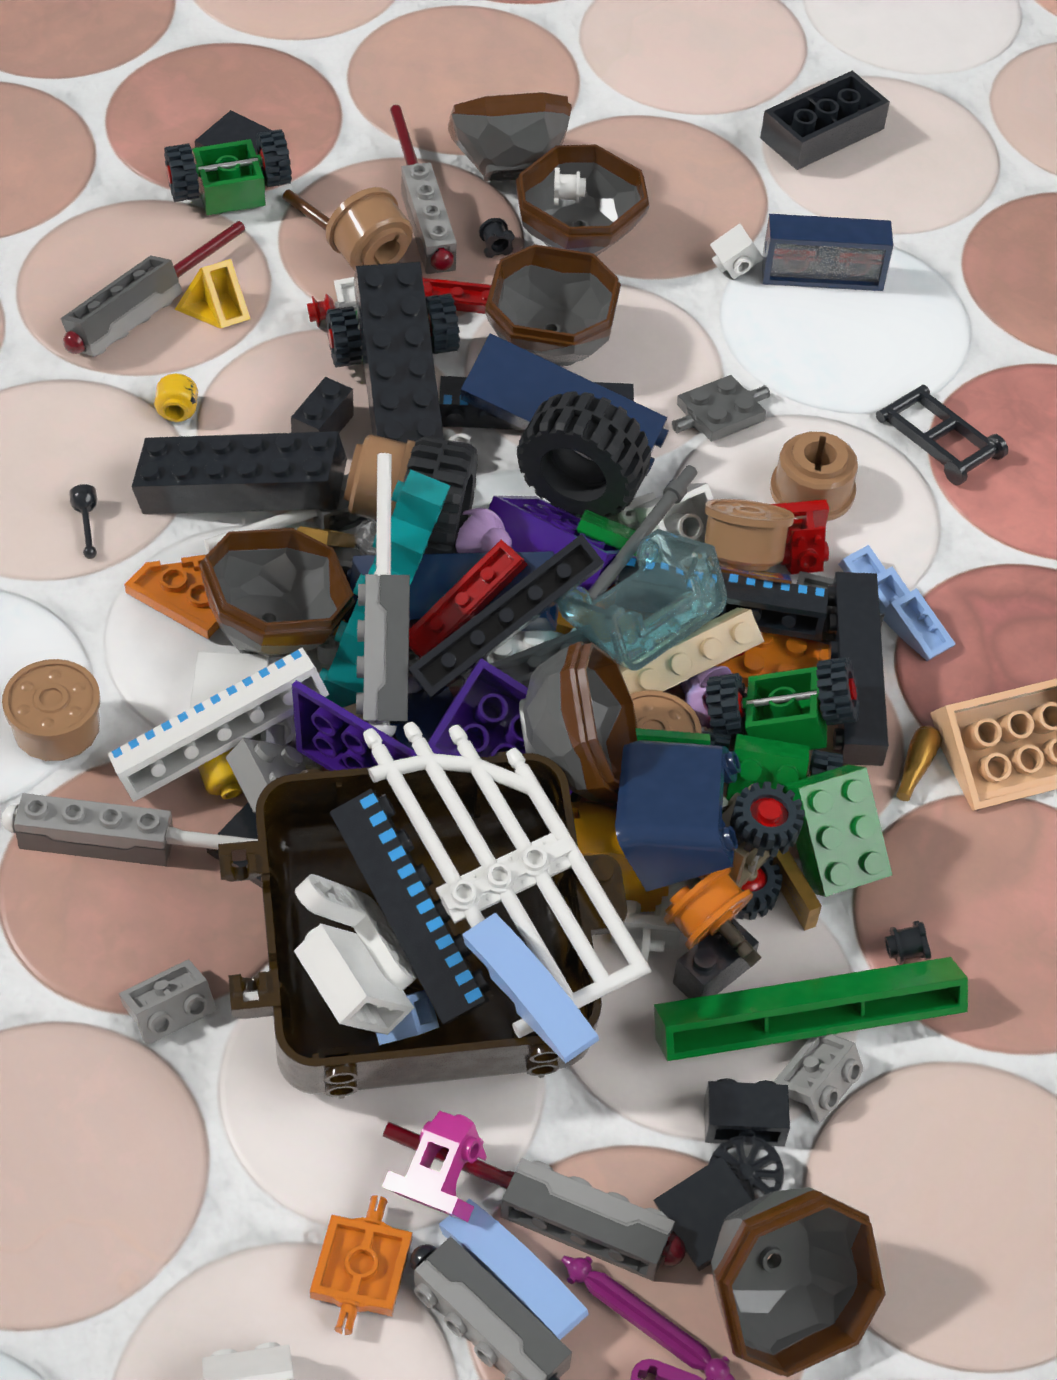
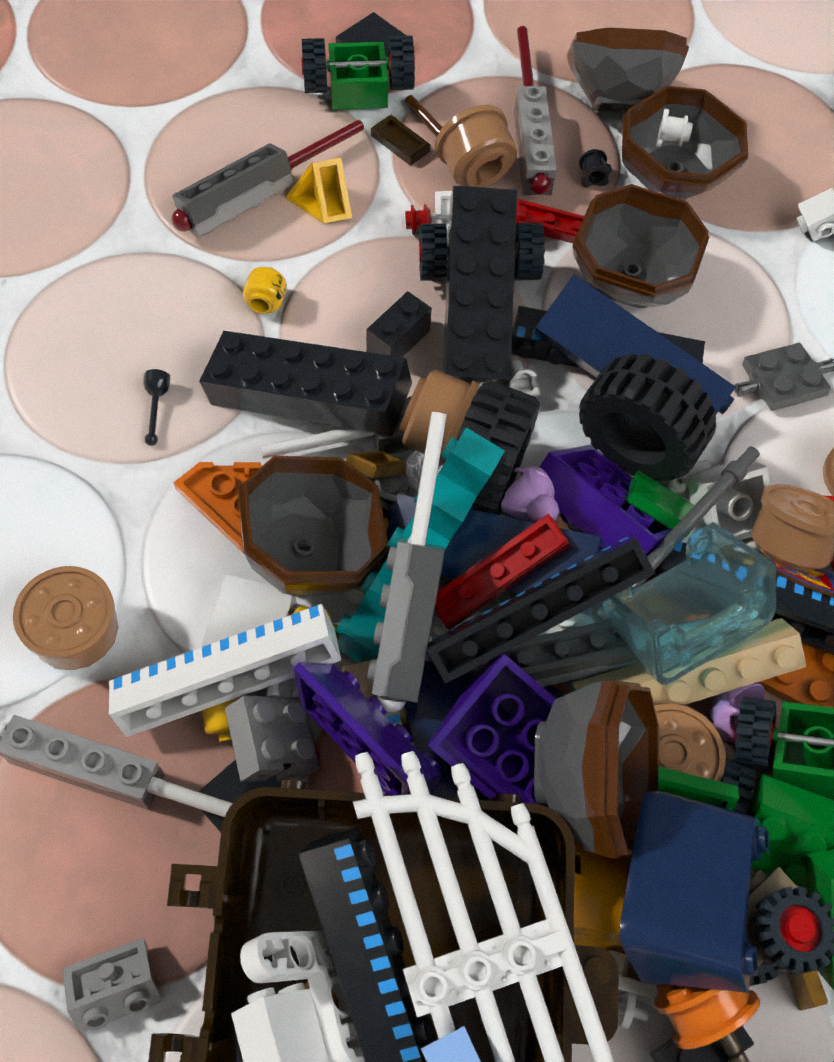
camera: 10 degrees right, 10 degrees up
(285, 236) = (400, 140): none -> dark brown tile

